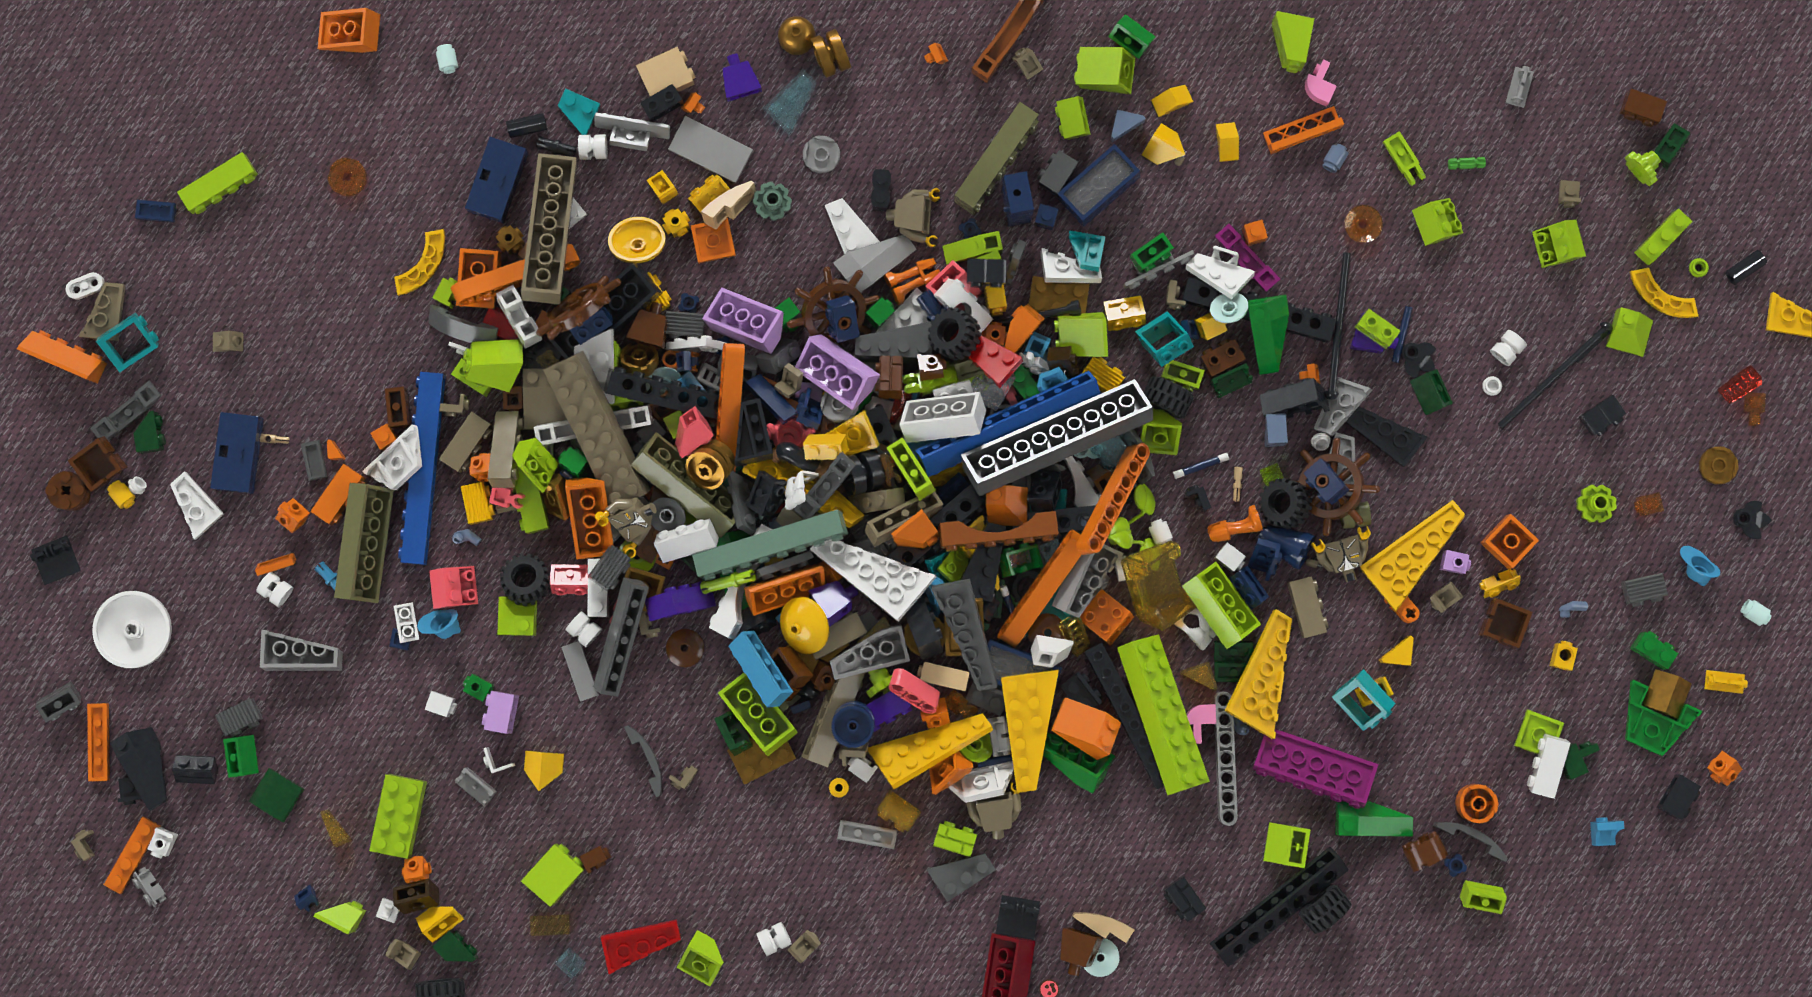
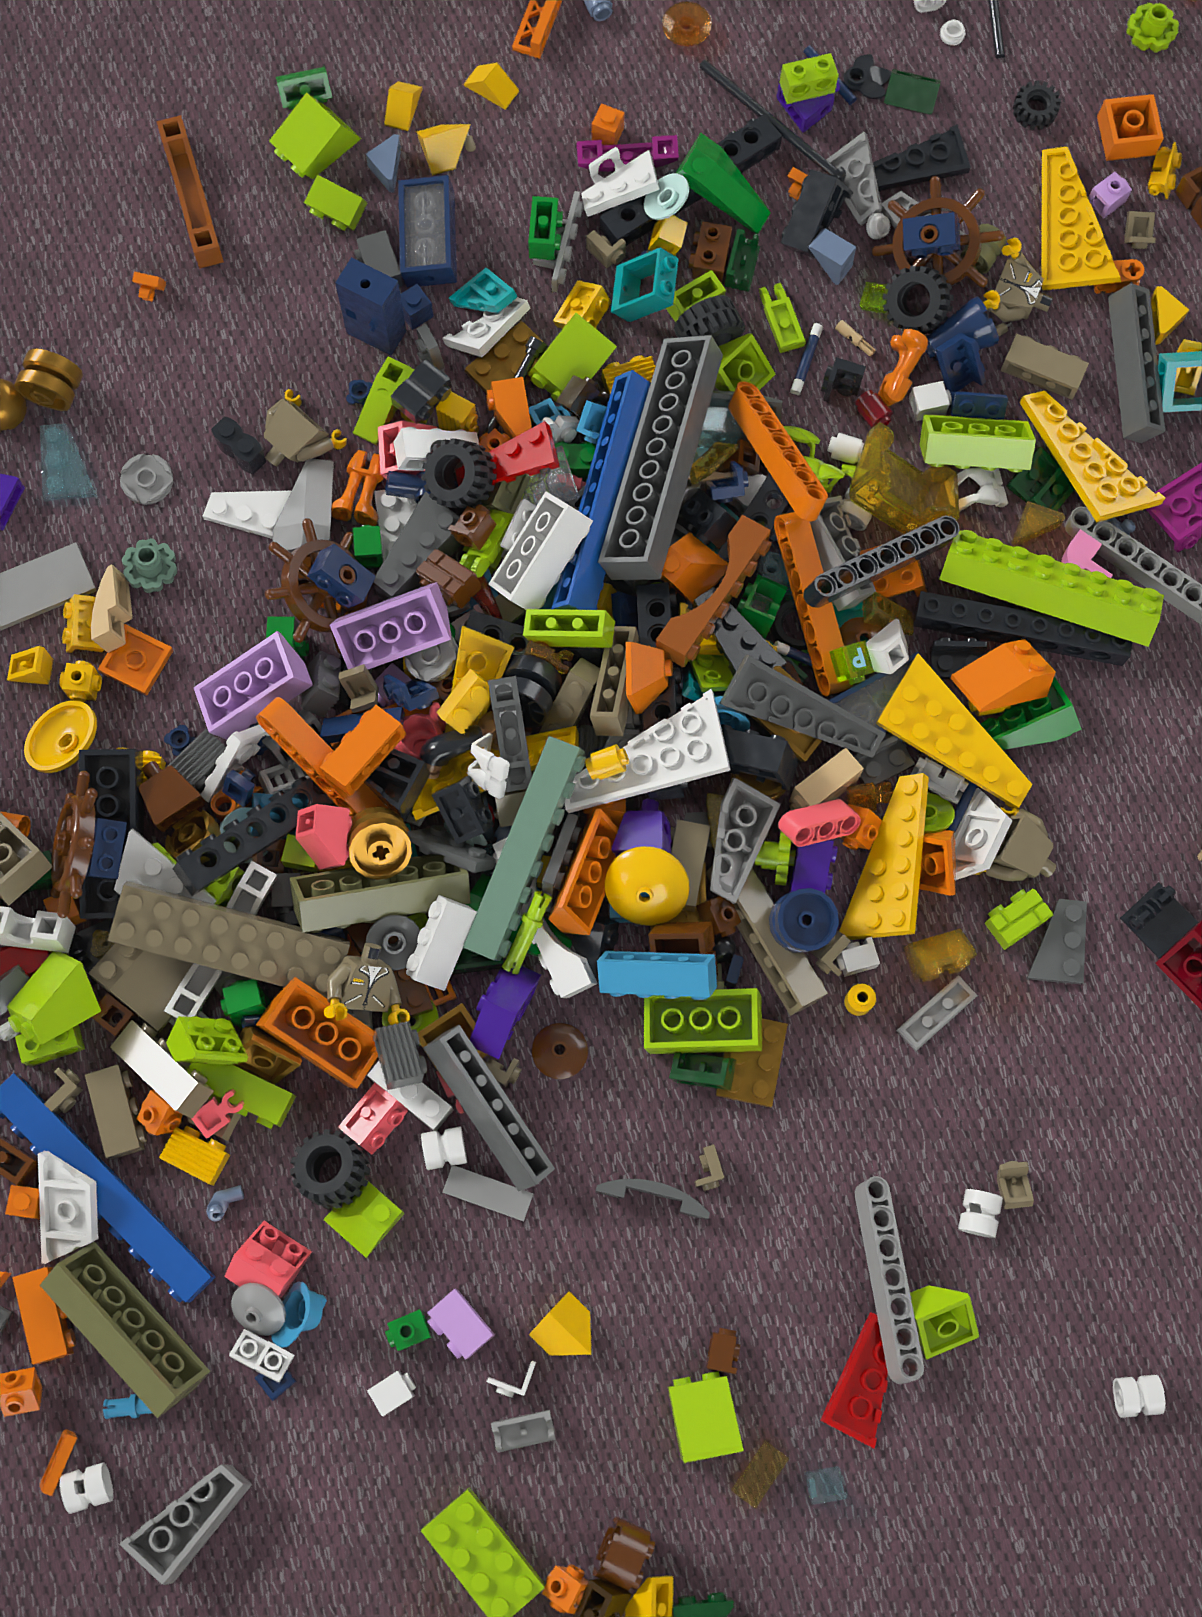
camera: 55 degrees left, 10 degrees down
(427, 601) = (258, 1309): none -> light grey dish
(455, 885) = (623, 1554): none -> reddish brown brick
(690, 918) = (884, 1293): none -> light grey beam
(751, 415) = (362, 750): none -> orange brick
(850, 551) = (607, 762): none -> yellow brick
(996, 157) = (311, 303): olive brick -> none
(1023, 637) = (851, 662): none -> clear neon green brick
(1027, 62) = (238, 205): dark tan bracket -> none
(1072, 487) = (726, 488): none -> dark blue bracket
(1083, 465) = (711, 461): none -> clear yellow slope
(1102, 613) = (881, 561): none -> black beam
(1198, 530) = (873, 409): none -> dark red brick
(1213, 433) = (782, 319): none -> lime hinge
(1351, 659) = (1136, 363): none -> dark grey brick
(1490, 466) = (1040, 93): none -> black tyre

